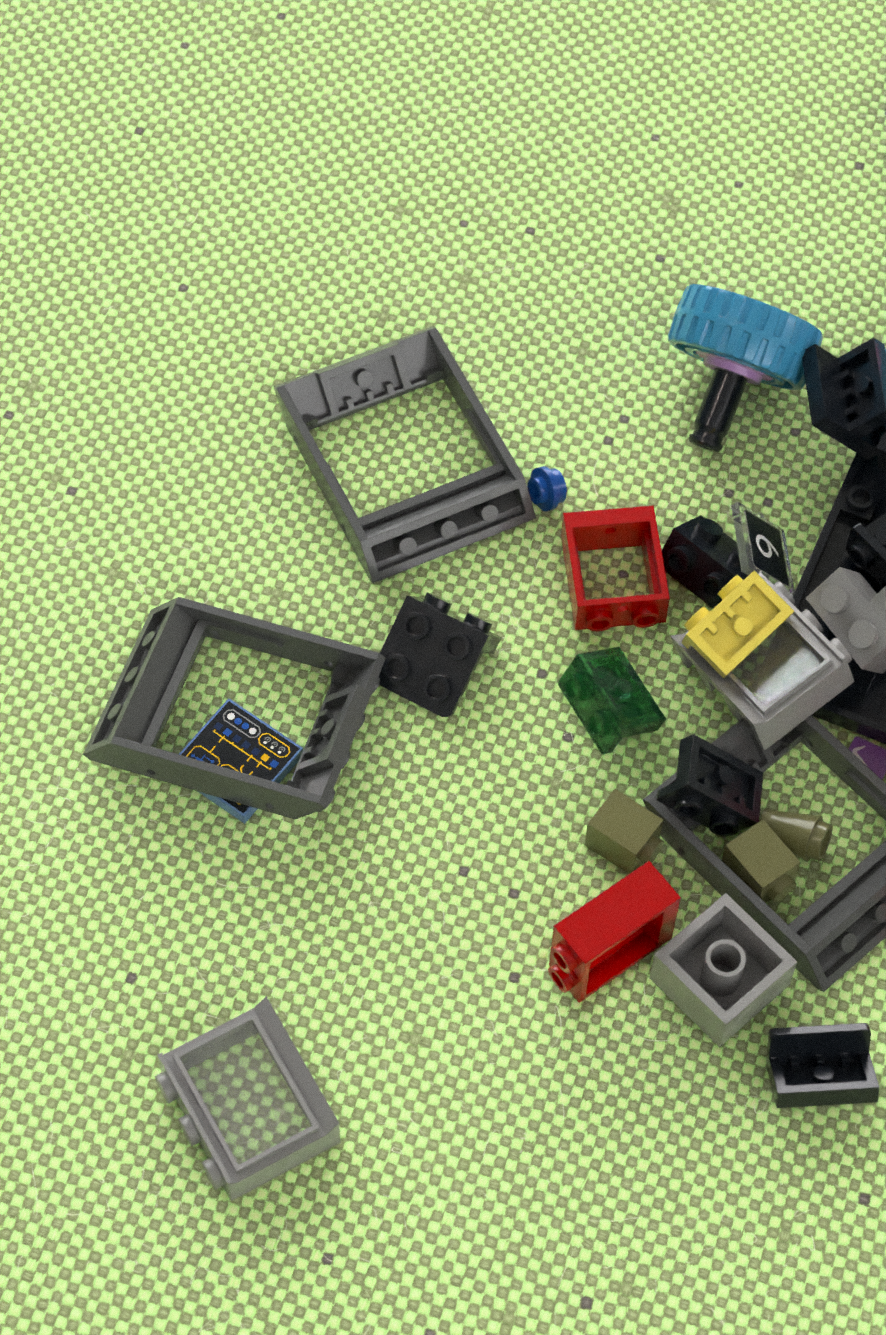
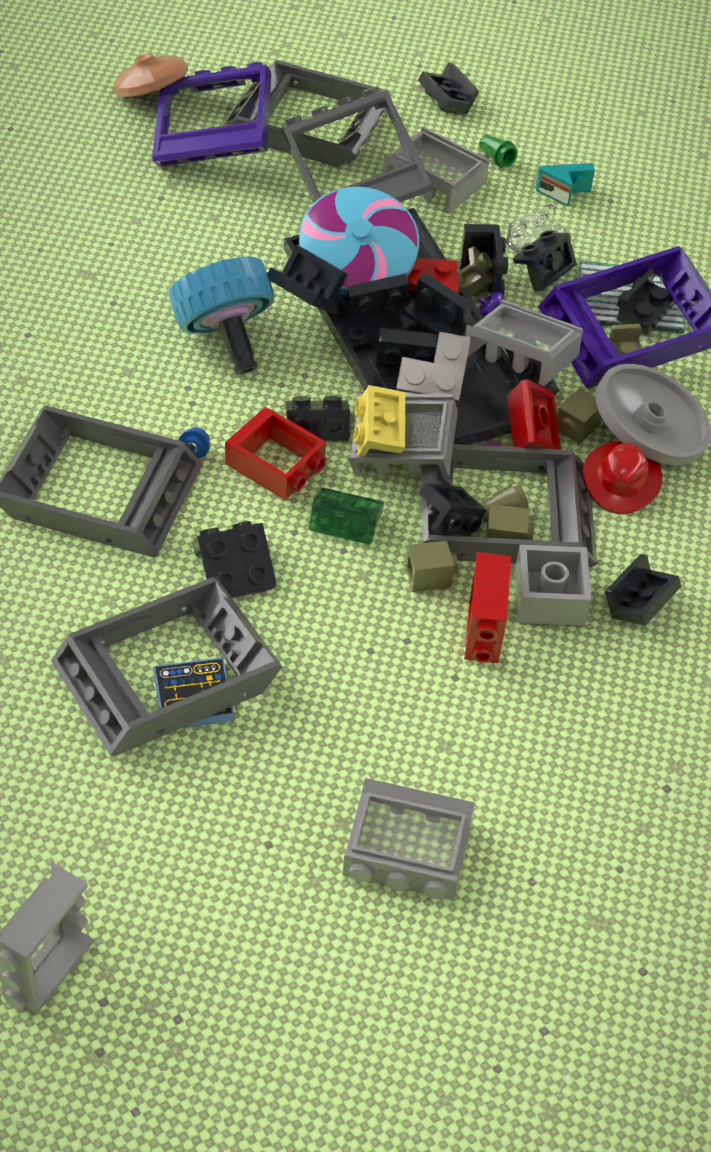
camera: 50 degrees left, 10 degrees down
(761, 546) = (332, 388): piece -> none

